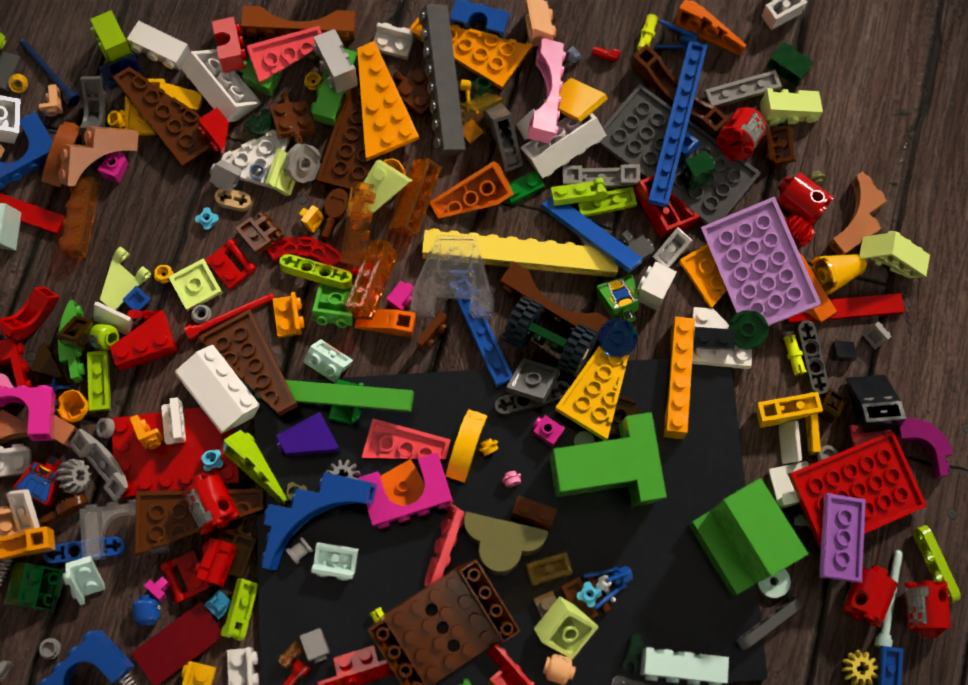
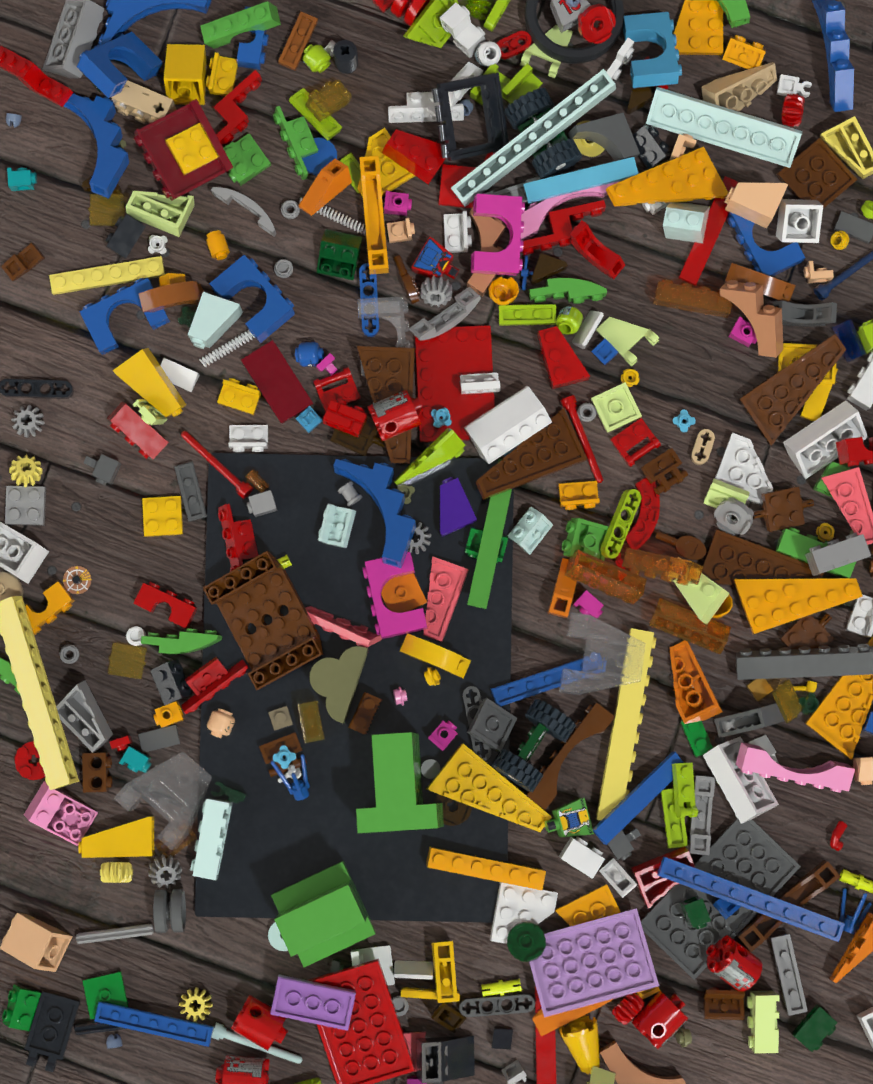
camera: 95 degrees right, 10 degrees up
(23, 510) = (408, 246): white plate -> none
(75, 333) = (572, 295): dark brown slope -> none
(83, 578) = (341, 298): light aqua bracket -> none
(105, 428) = (481, 320): light grey tile -> none
(116, 119) = (794, 335): yellow plate -> none
(138, 314) = (590, 359): red piece -> none
(148, 438) = (472, 355): light orange bracket -> none
(215, 129) = (774, 433): red slope -> none
(225, 175) = (725, 440): light grey brick -> none
(240, 609) = (301, 438): lime plate -> none
(254, 168) = (723, 474): sand blue hinge -> none
(259, 124) = (780, 475): clear green hair -> none
(311, 218) = (676, 522): yellow tile -> none
(436, 327) = (555, 637): reddish brown plate -> none
(565, 628) = (256, 732): yellowish green slope -> none
(573, 55) = (838, 800): sand blue hinge -> none
(579, 99) = (783, 799): yellow tile -> none
(617, 337) = (528, 811): clear blue tile -> none
(714, 338) = (520, 906): black plate -> none
(769, 623) = (244, 924): dark grey beam -> none

